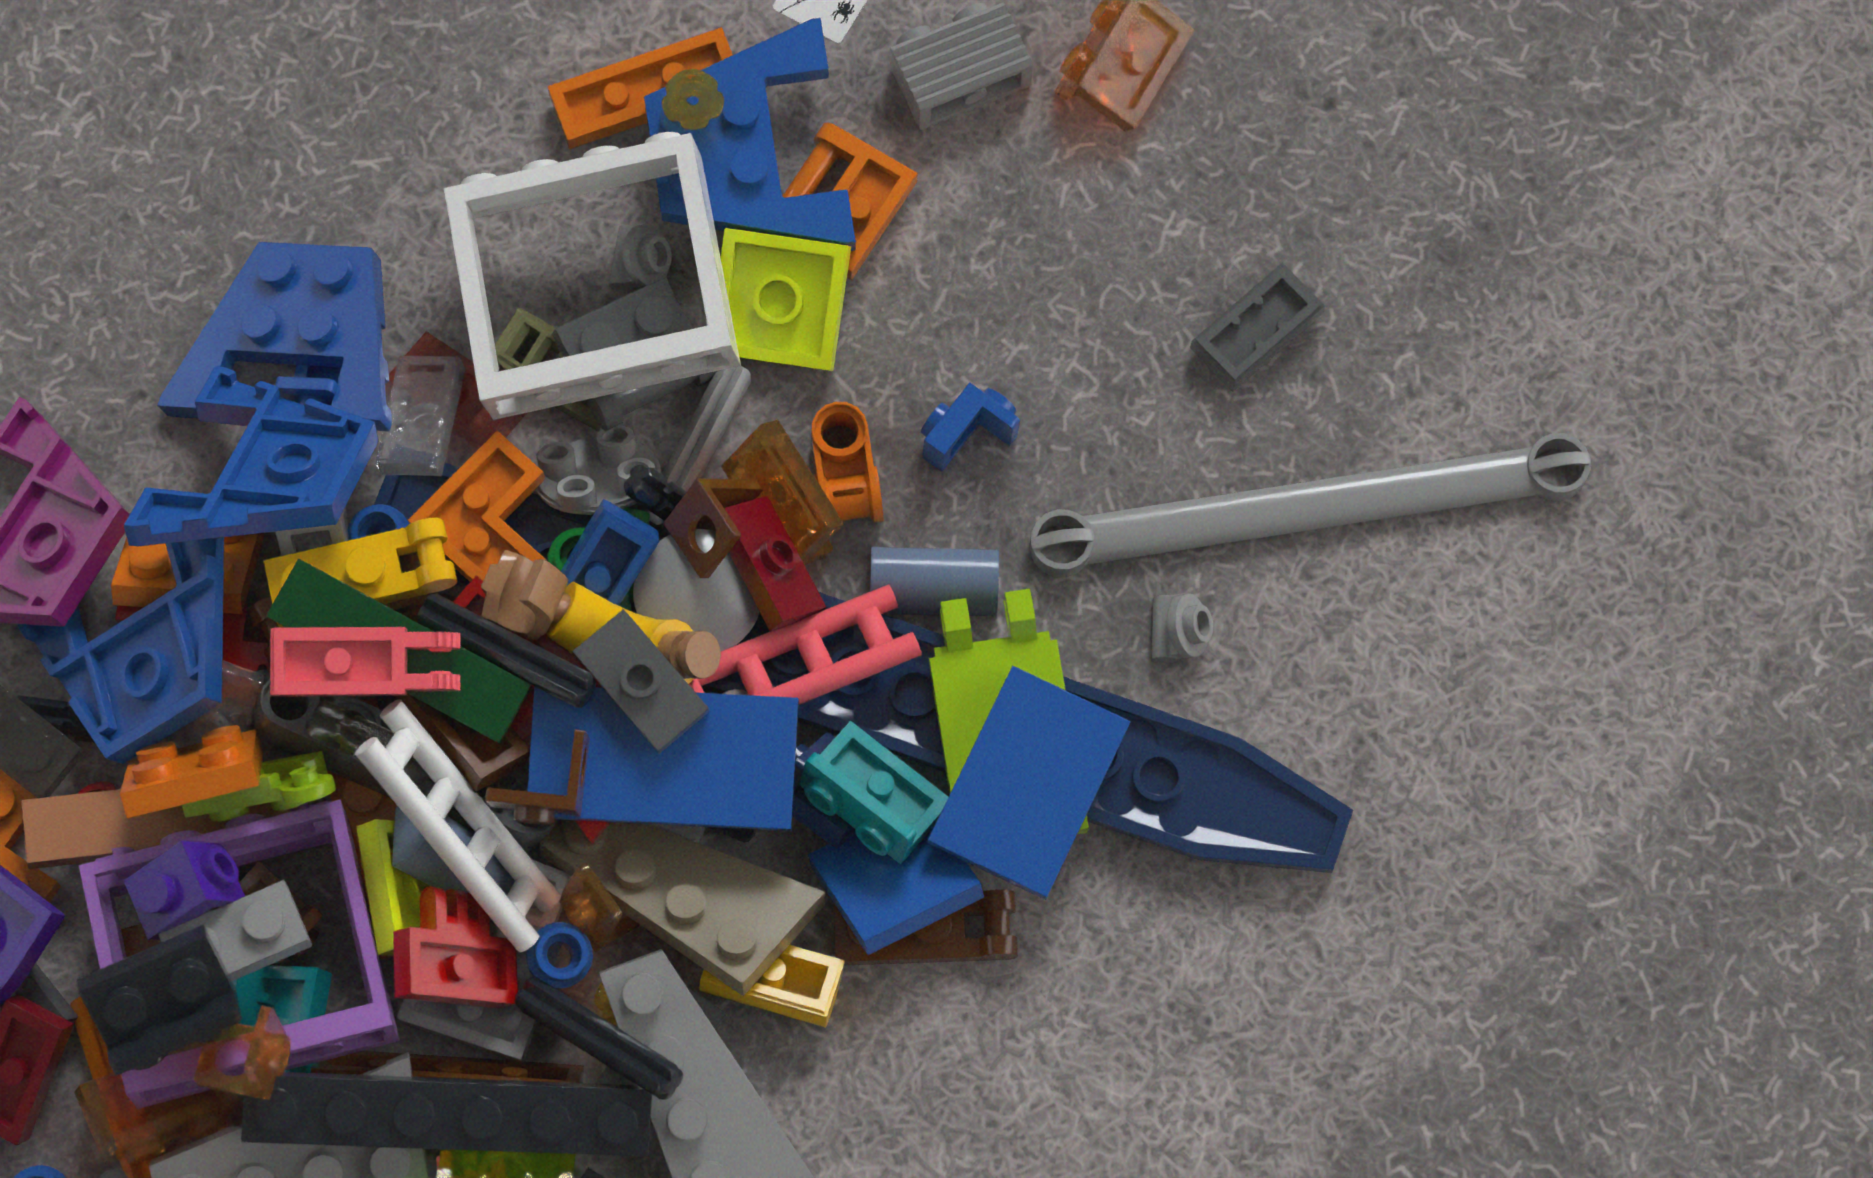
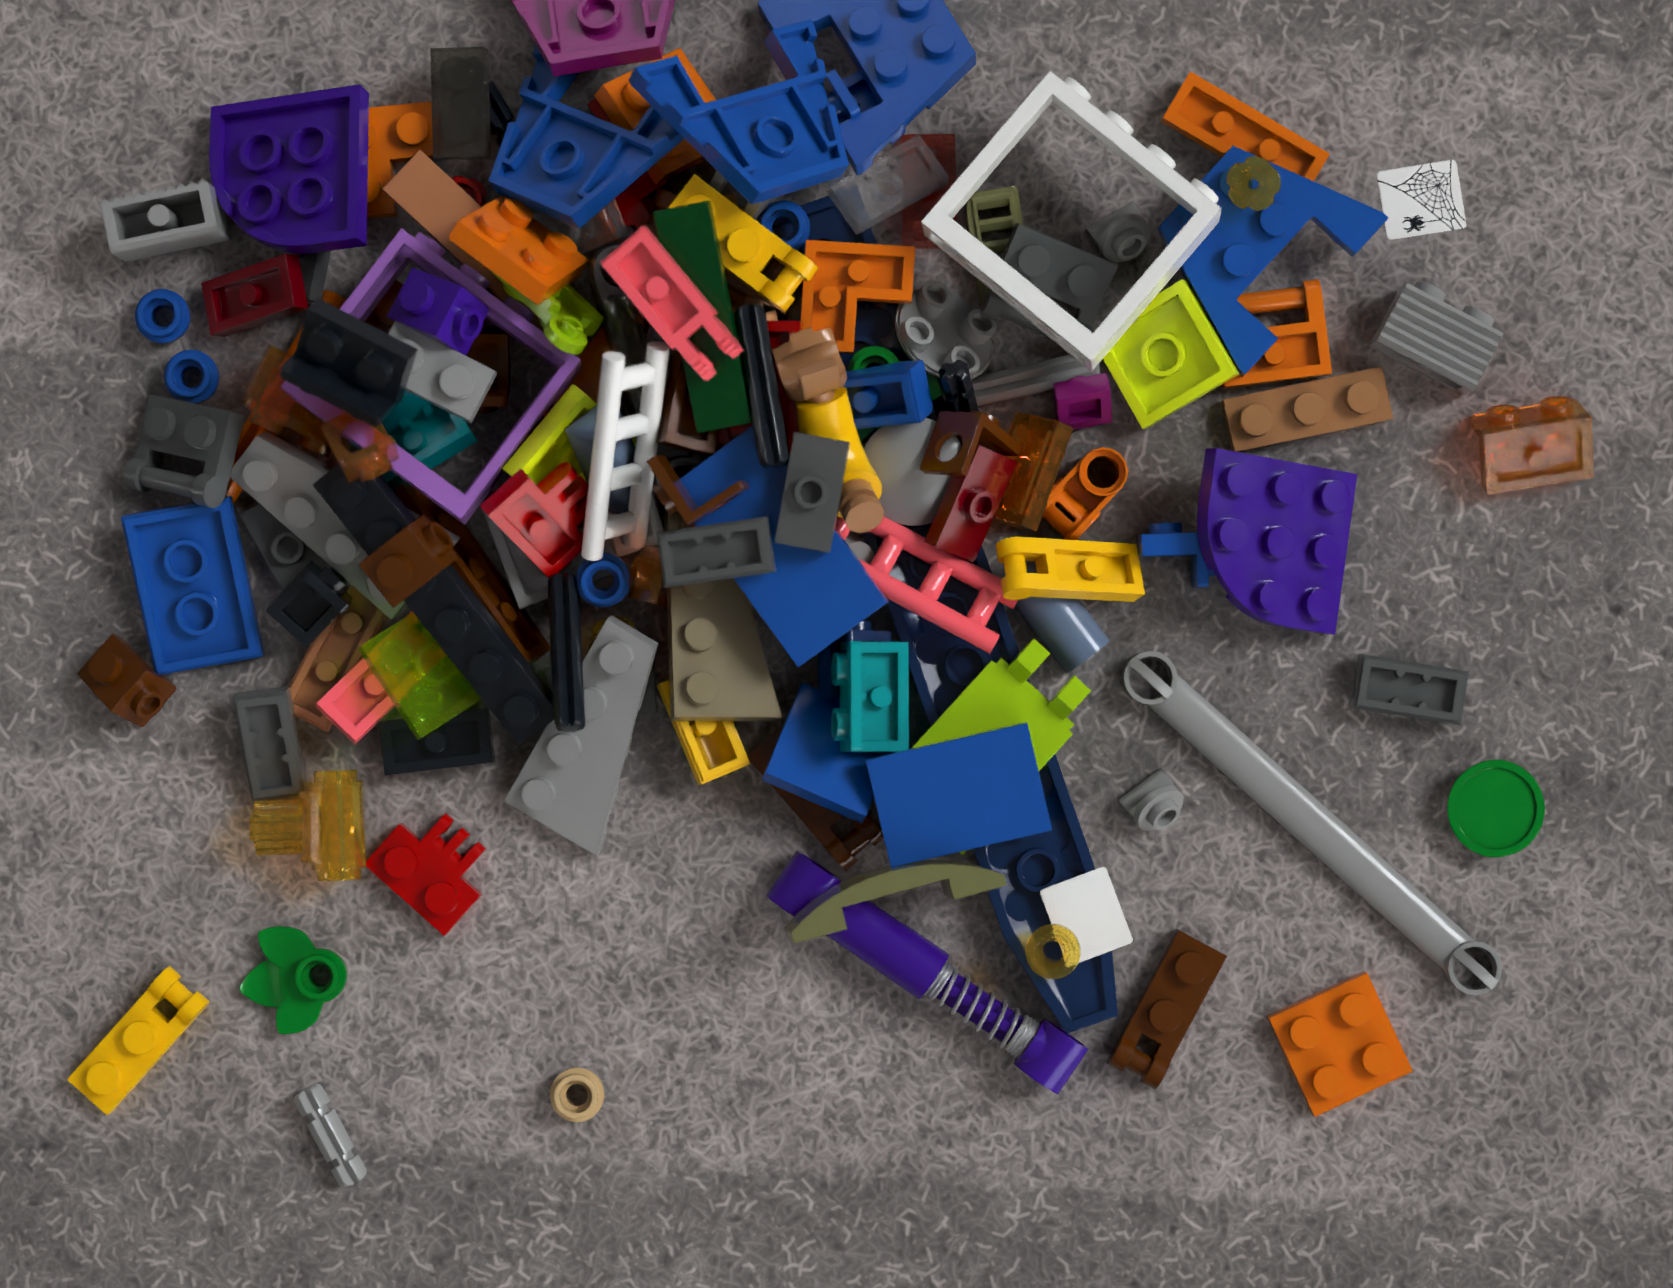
camera: 55 degrees right, 15 degrees up
(389, 1104) = (409, 559): none -> reddish brown bracket
(622, 812) = (716, 551): none -> dark grey plate
(761, 398) = (1083, 401): none -> magenta plate
(903, 528) = (1070, 569): none -> yellow plate
(932, 223) = (1307, 409): none -> medium nougat plate
(1024, 330) = (1276, 536): none -> dark purple plate
(1025, 998) = (923, 969): none -> dark purple piece
(1041, 980) = (825, 912): none -> olive slope
(1236, 765) = (1090, 911): none -> white sticker
(1257, 799) = (1043, 965): none -> clear yellow plate
(1381, 764) = (1167, 1007): none -> reddish brown plate
(1426, 334) = (1496, 808): none -> green piece
(1537, 638) = (1339, 1043): none -> orange plate

